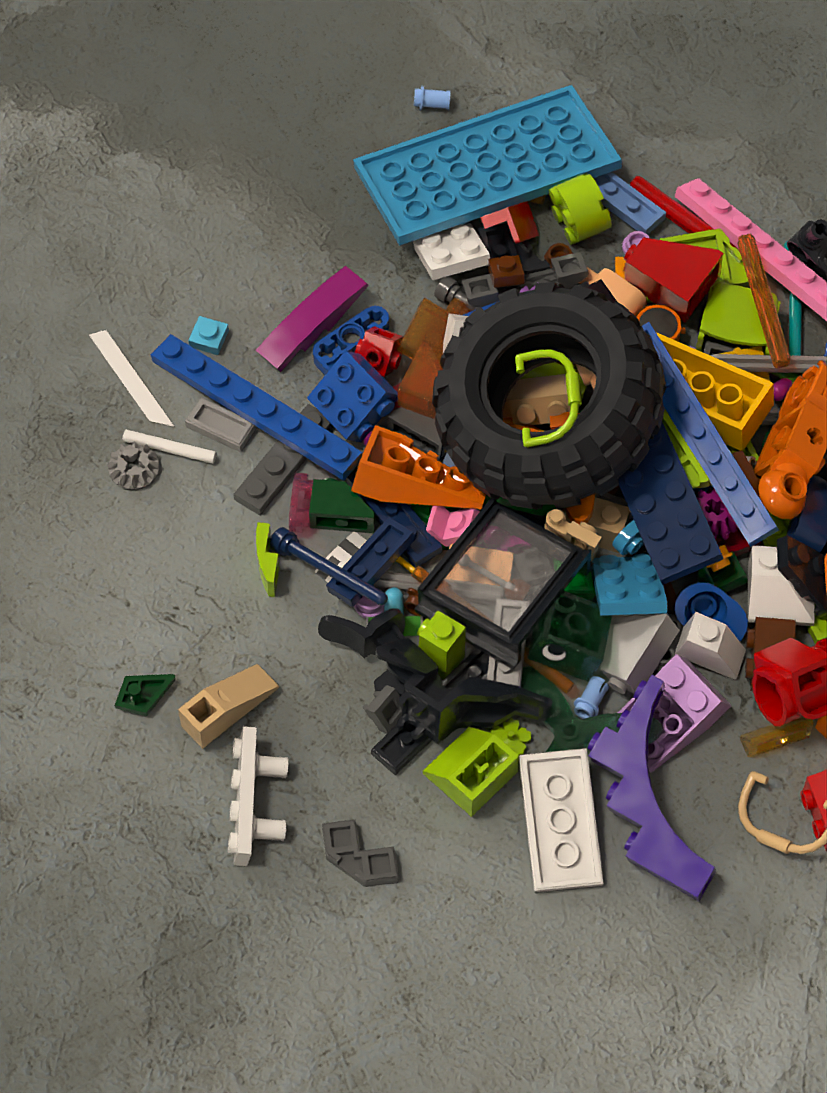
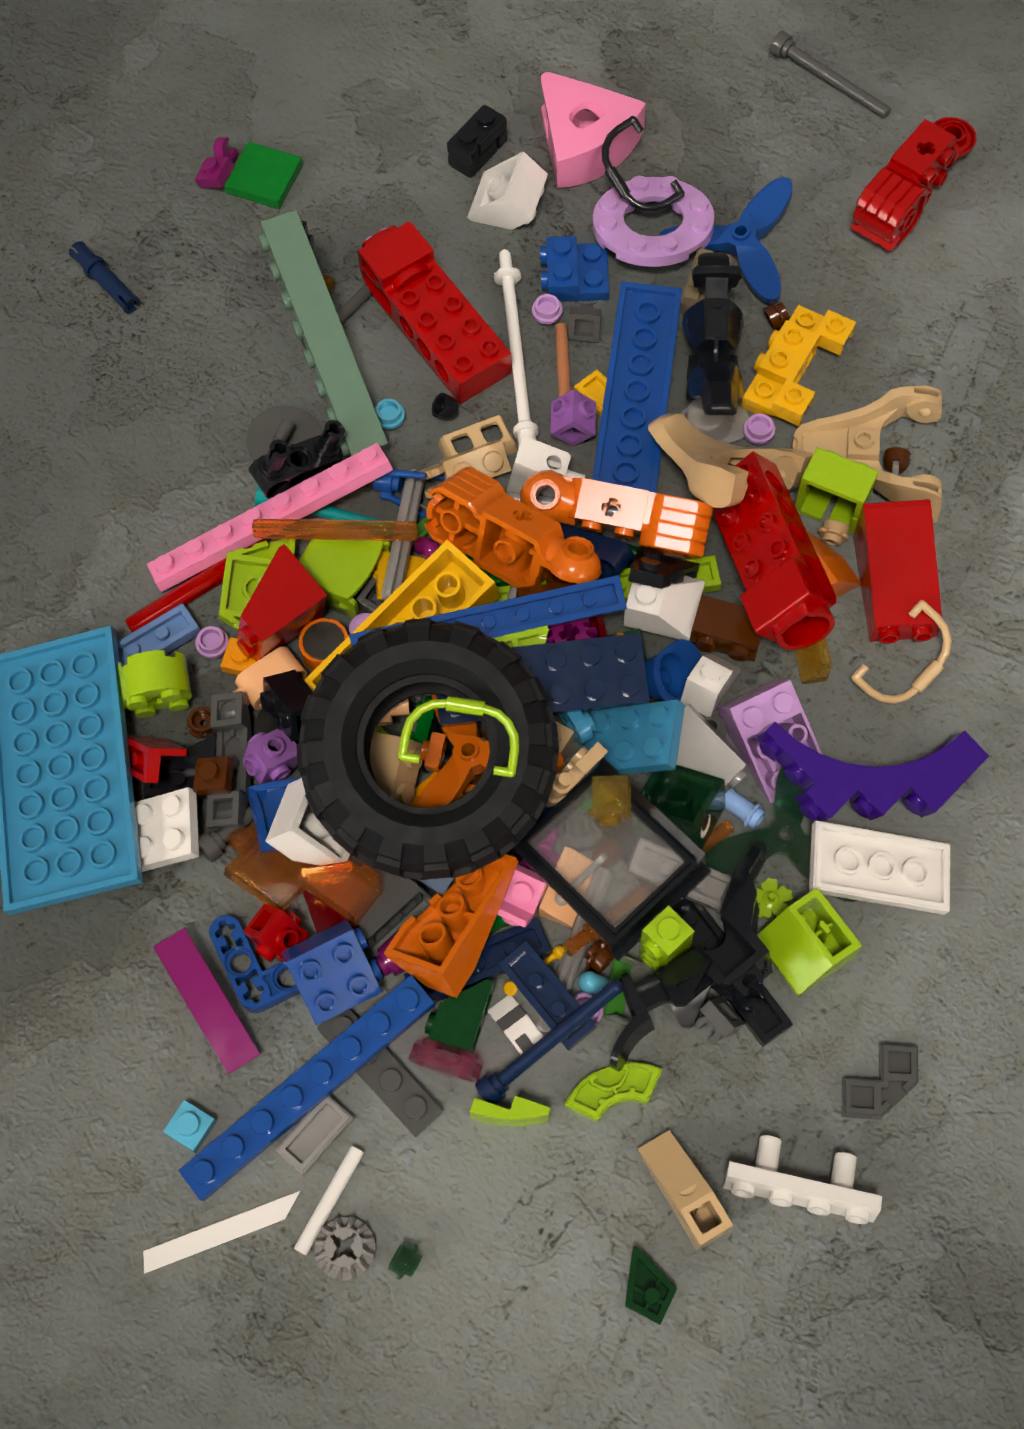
camera: 75 degrees left, 5 degrees up
(131, 508) = (405, 1260): none -> clear green plate
(302, 631) = (609, 1087): none -> lime tile
(549, 561) = (611, 800): none -> clear yellow bracket

